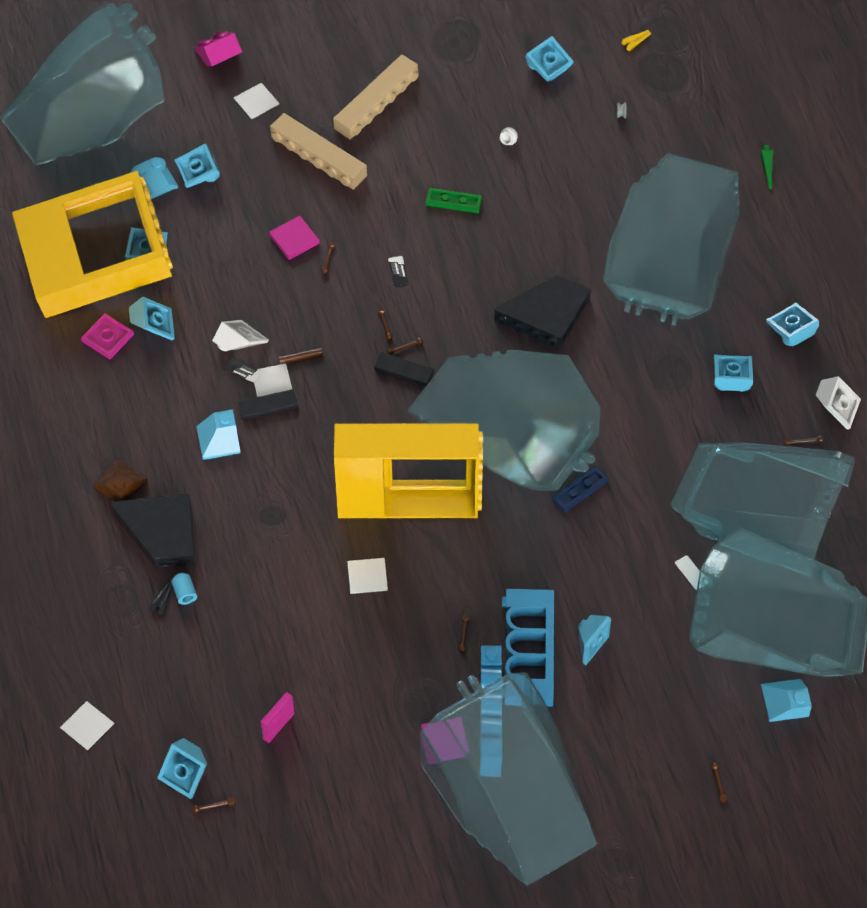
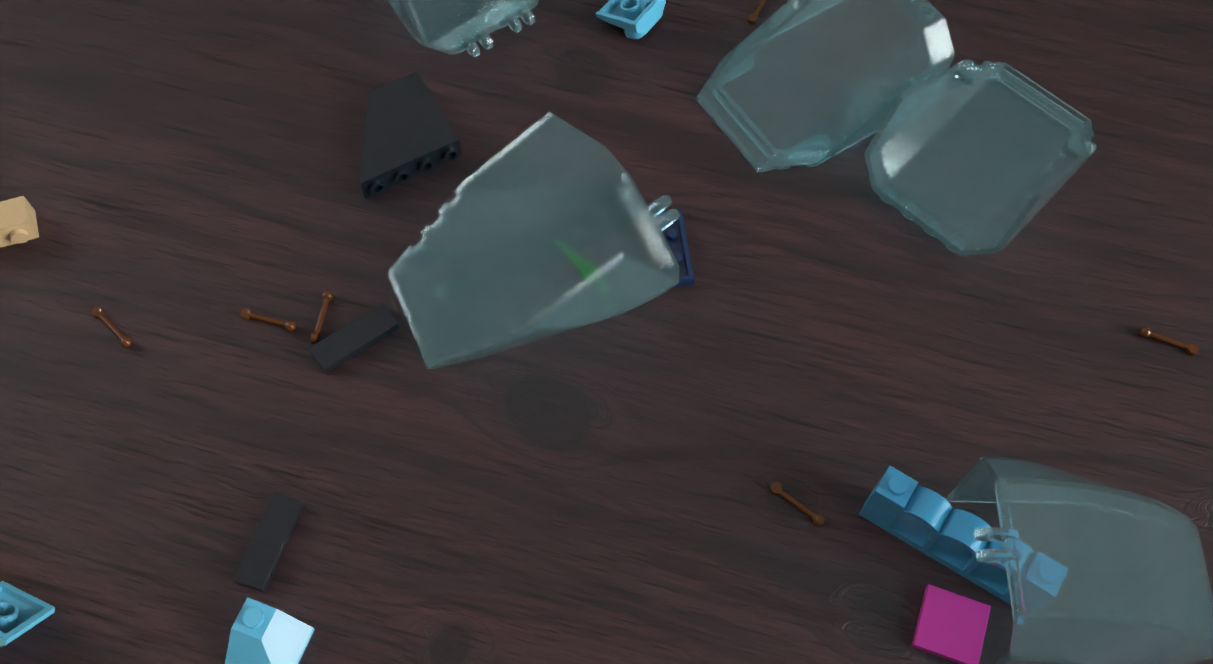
camera: 60 degrees left, 5 degrees up
(237, 335) = (130, 515): white slope -> none
(242, 370) = (186, 543): sticker -> none
(272, 380) = (234, 514): white sticker -> none
(294, 237) = (43, 348): dark pink tile -> none
(301, 355) = (228, 452): reddish brown piece -> none
(365, 470) = (546, 414): yellow panel -> none
(367, 575) = (631, 574): white sticker -> none
(398, 271) = (204, 258): sticker -> none
(454, 200) = (162, 139): green tile -> none
(508, 136) = (131, 31): white plate -> none
(531, 603) = (818, 379): dark azure fence -> none
(593, 635) = (904, 354): medium azure slope -> none
(689, 570) = (860, 203): white sticker -> none
(786, 700) = (1093, 206): medium azure slope -> none

